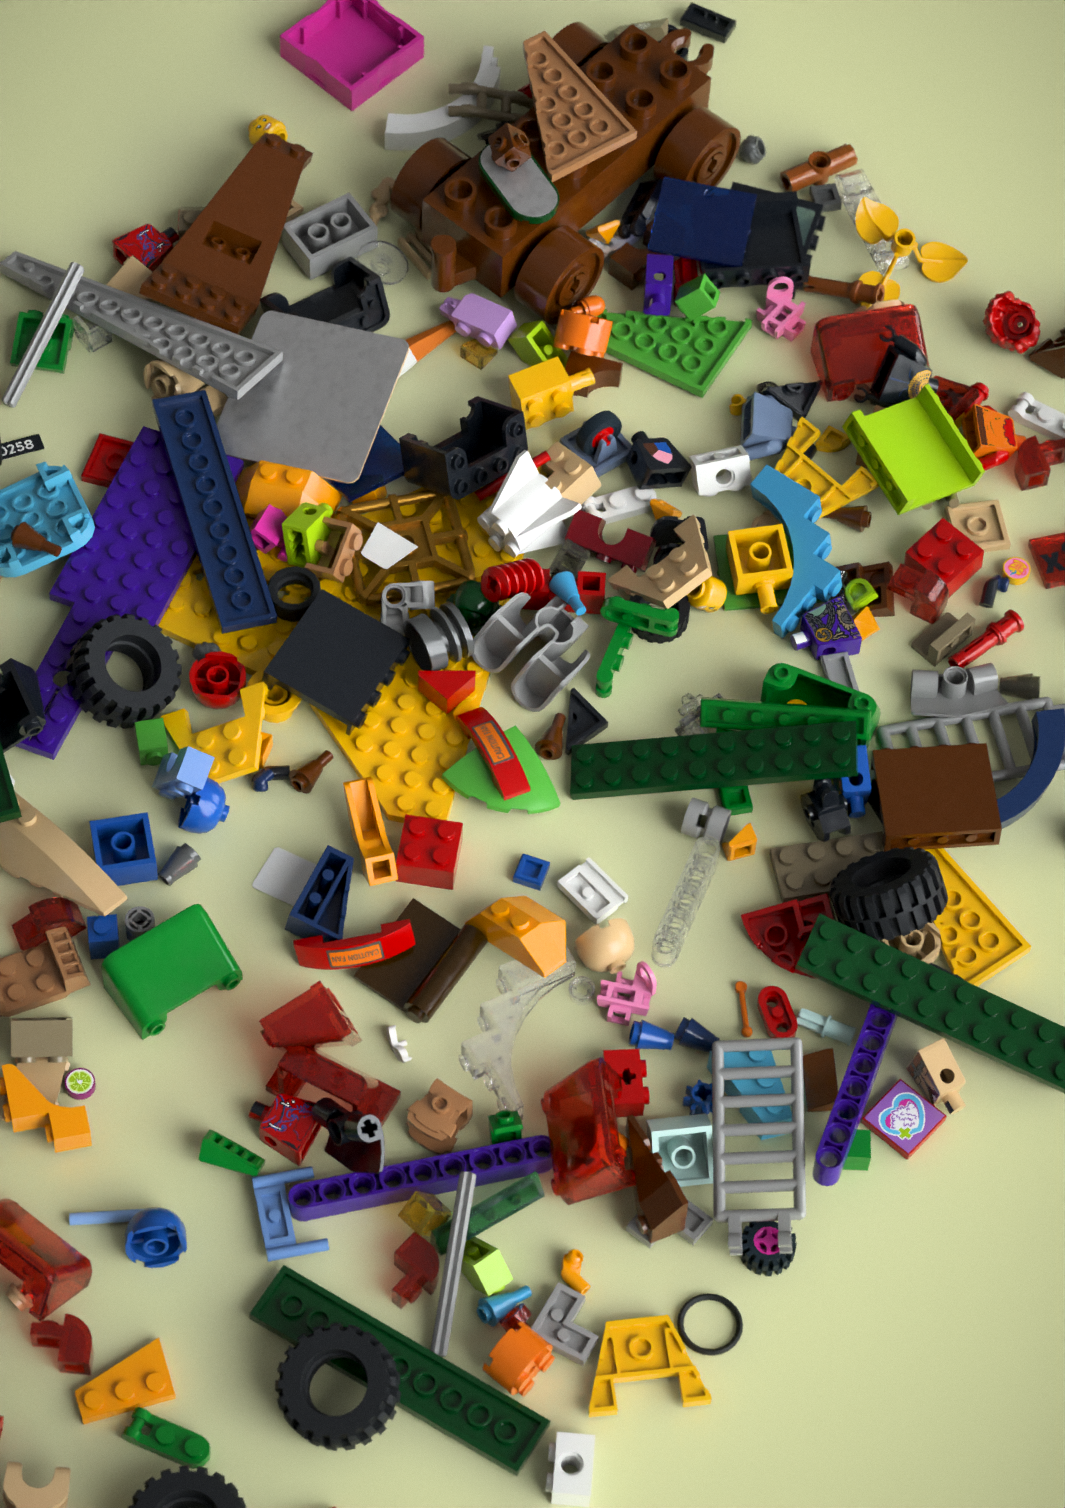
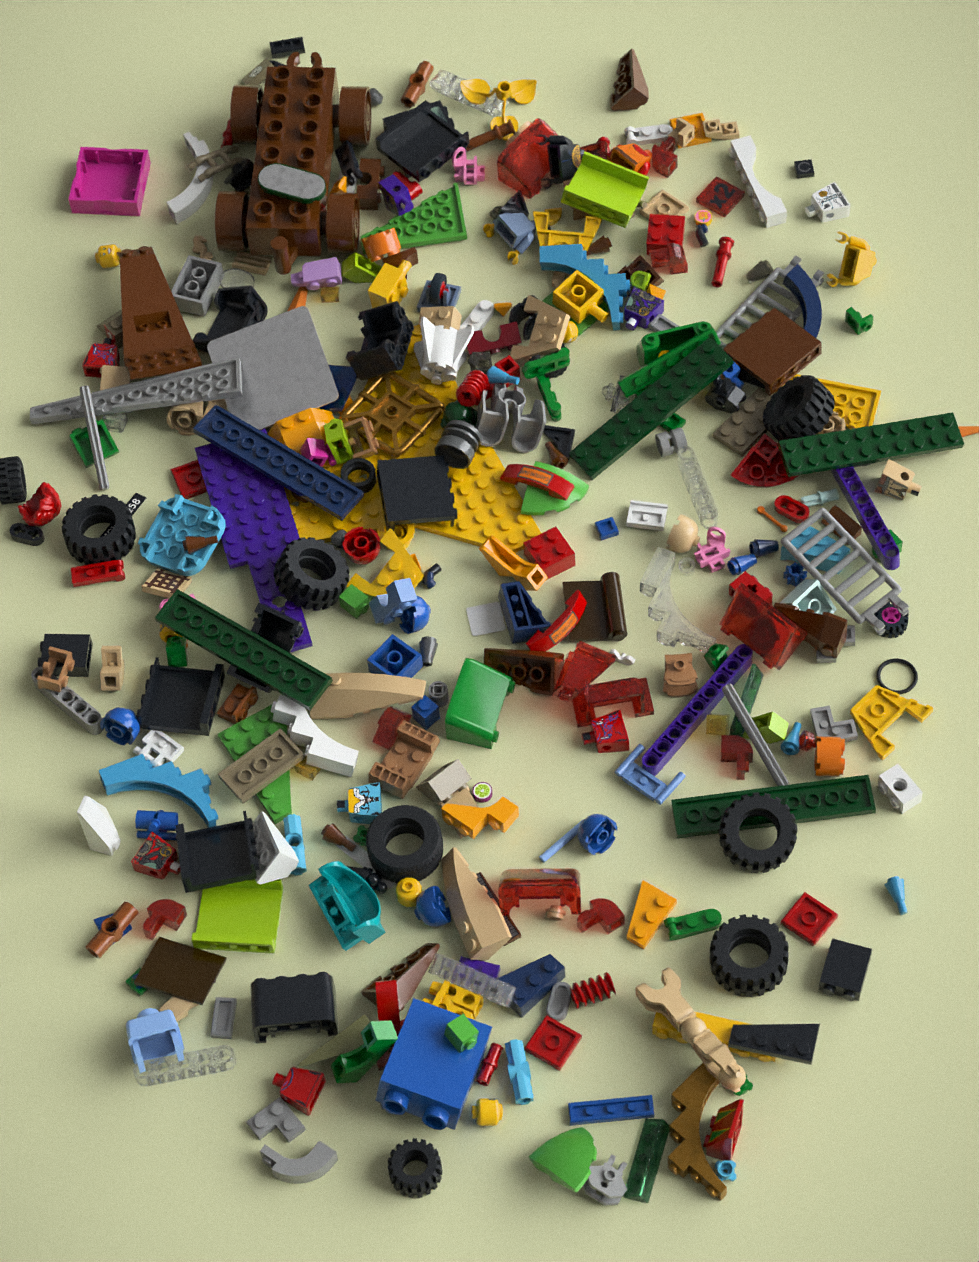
camera: 30 degrees left, 0 degrees up
(227, 1154) = (589, 770): green slope -> none
(270, 966) = (528, 668): none -> reddish brown wedge
(306, 776) = (449, 562): reddish brown cone -> none
(353, 1137) = (653, 712): black panel -> none
(386, 547) = (384, 419): white sticker -> none
(414, 596) = (423, 434): light grey piece -> none
(446, 688) = (481, 468): red slope -> none
(495, 486) = (415, 338): red bar -> none
(509, 147) = (276, 167): reddish brown brick -> none
(524, 932) = (636, 557): light orange wedge -> none
(570, 111) = (287, 130): medium nougat wing -> none
(571, 1271) = (809, 700): light orange arm -> none
(590, 305) = (369, 229): orange cylinder -> none
(656, 463) = (477, 285): black torso -> none
(697, 297) = (422, 188): bright green brick -> none
(702, 222) = (392, 147): clear blue piece -> none
(708, 464) = (514, 267): white brick -> none
(741, 845) = (698, 441): light orange slope -> none
(827, 196) = (433, 95): dark grey plate -> none
(903, 1119) = (898, 513): tile -> none
(943, 637) = (698, 274): dark tan panel -> none
(956, 692) = (731, 297): light grey panel -> none
(1003, 321) = (582, 97): red hair -> none

